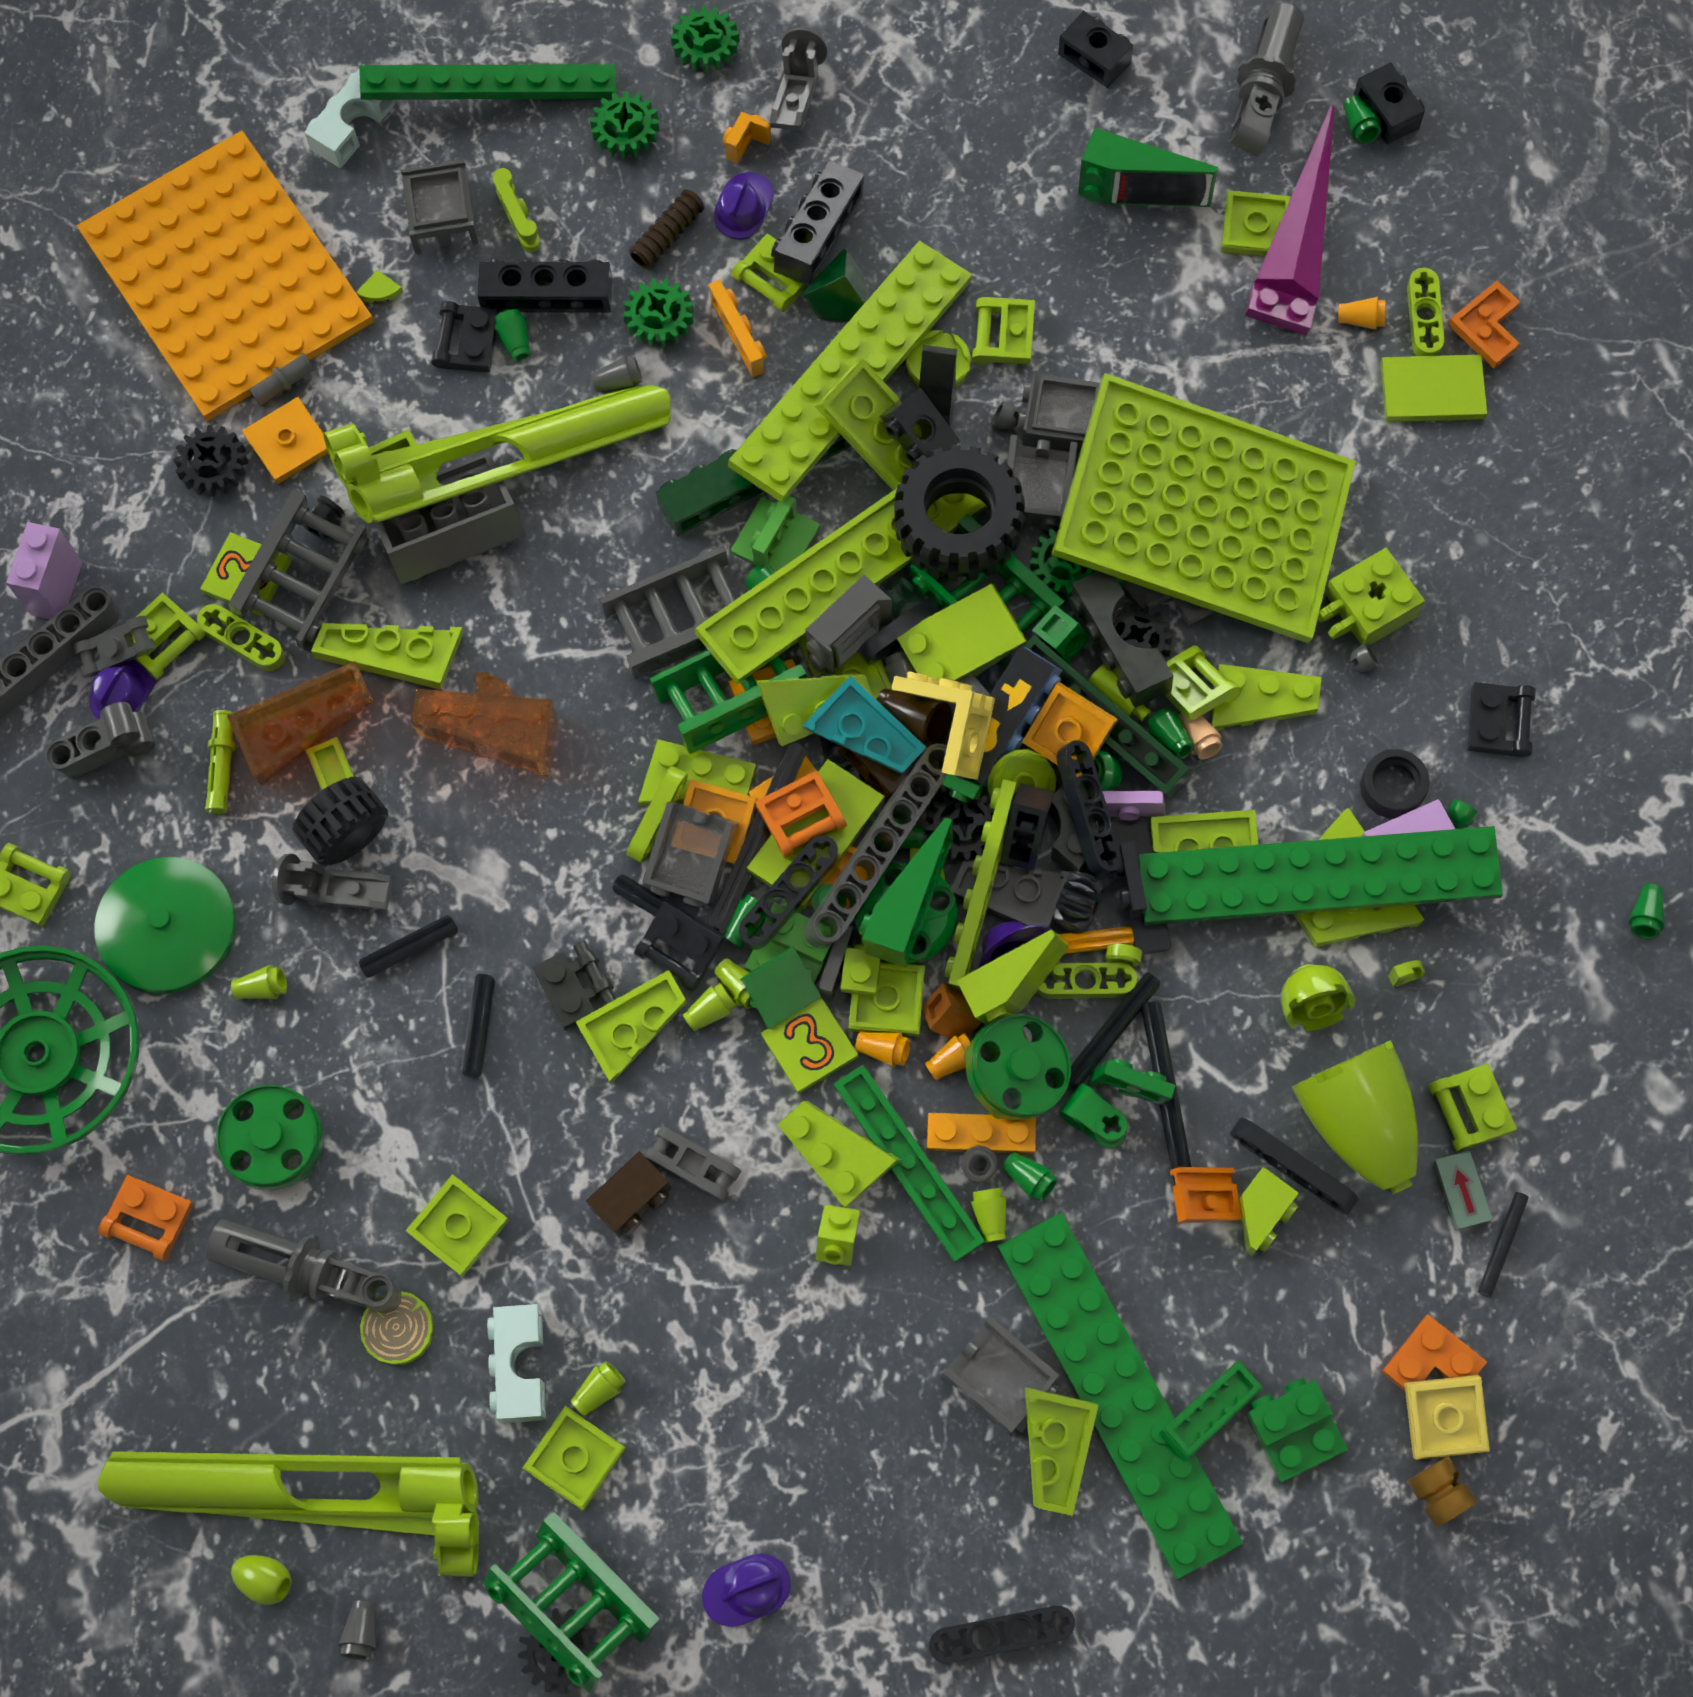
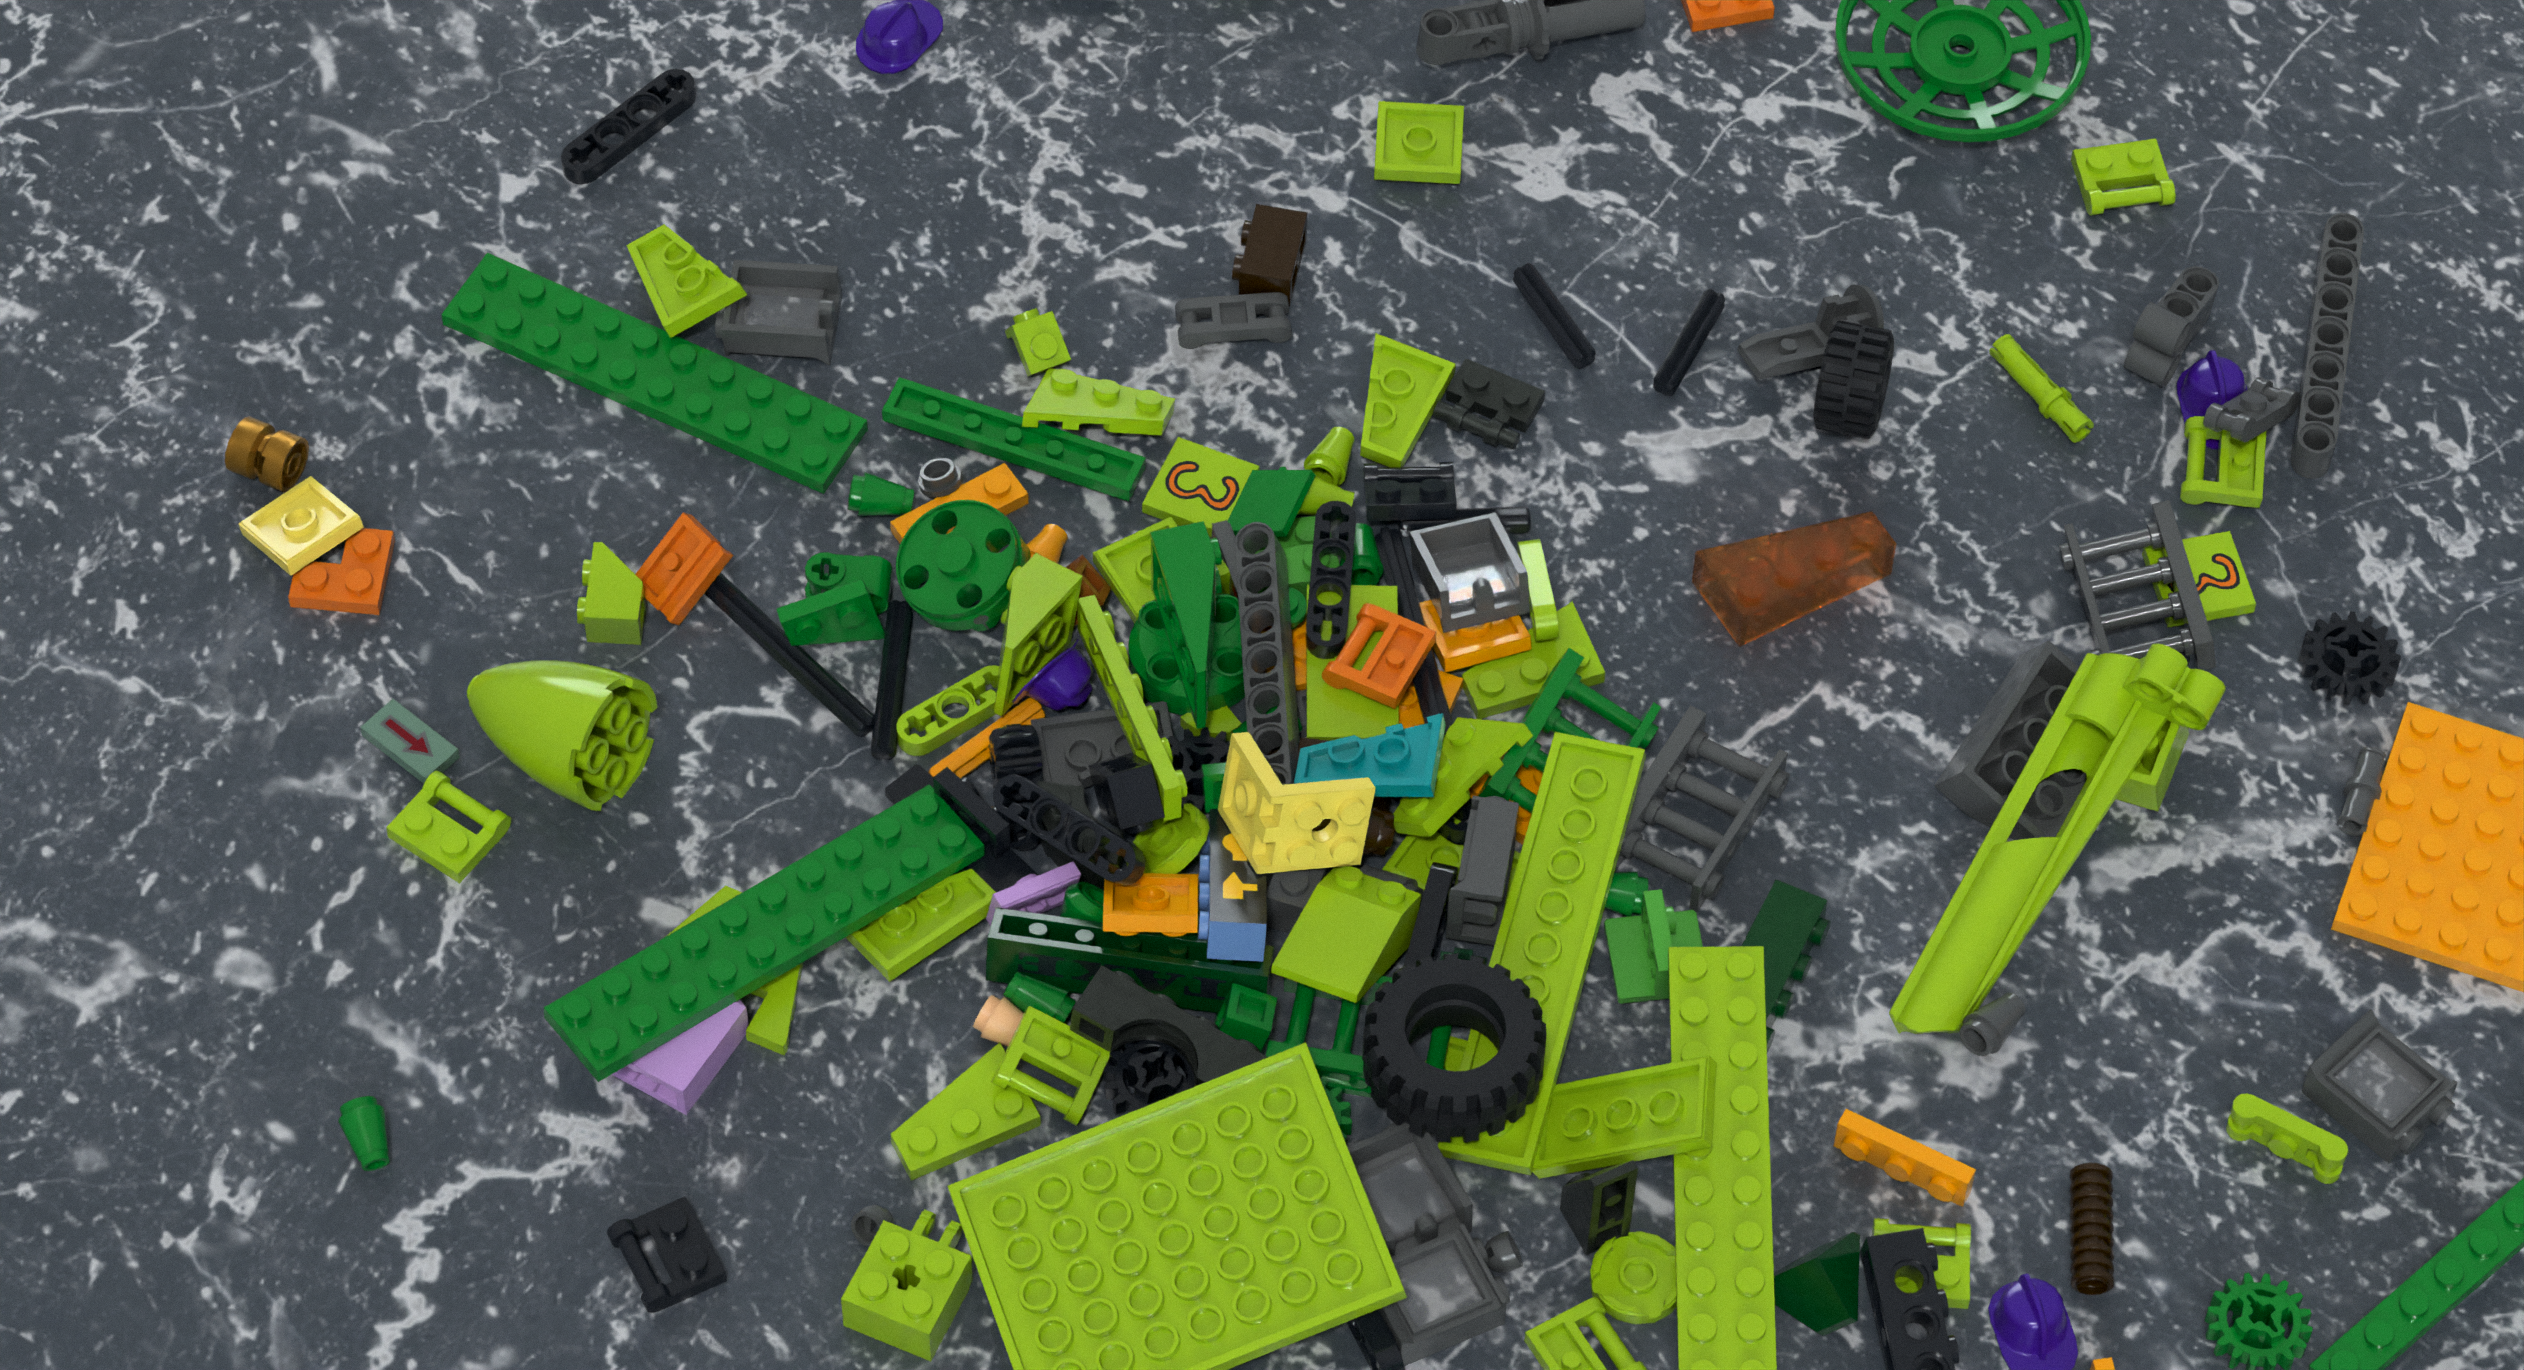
camera: 140 degrees right, 15 degrees down
(44, 570) = (2393, 425): lavender brick -> none
(165, 925) = (1949, 225): green dish -> none
(248, 650) = (2107, 504): lime beam -> none
(261, 984) = (1799, 225): lime cone -> none
(269, 1137) = (1666, 105): green piece -> none
(287, 440) = (2293, 737): light orange plate -> none
(289, 723) = (1998, 456): clear orange wedge -> none
(329, 762) = (1915, 450): lime tile -> none
(379, 288) = (2358, 961): lime tile -> none
(398, 1335) = (1391, 40): dark tan tile -> none
(403, 654) = (1961, 594): lime wing -> none
(476, 337) = (2196, 975): black plate -> none
(491, 685) = (1828, 624): clear orange tile -> none
(513, 332) = (2156, 998): green cone -> none
(513, 1331) = (1242, 45): light aqua arch -> none
(558, 297) = (2217, 1025): black brick -> none
(574, 1458) = (1145, 39): lime tile -> none
(599, 1387) = (1167, 96): lime cone -> none
(665, 301) = (2032, 1125): green gear -> none
(884, 1046) = (1117, 522): light orange cone -> none
(912, 409) = (1580, 1131): black brick -> none
(990, 1213) = (897, 444): lime cone -> none
(1123, 954) = (929, 748): lime tile -> none
(1211, 1410) = (547, 398): green plate -> none
(1294, 1165) = (647, 656): black beam -> none
(1296, 1429) = (451, 436): green plate -> none
(1315, 997) = (693, 819): lime cylinder -> none
(1401, 759) = (738, 1072): black tyre -> none
(1406, 973) = (608, 913): lime tile -> none
(1461, 814) = (648, 1117): green hinge -> none
(1503, 1244) = (335, 718): black bar -> none

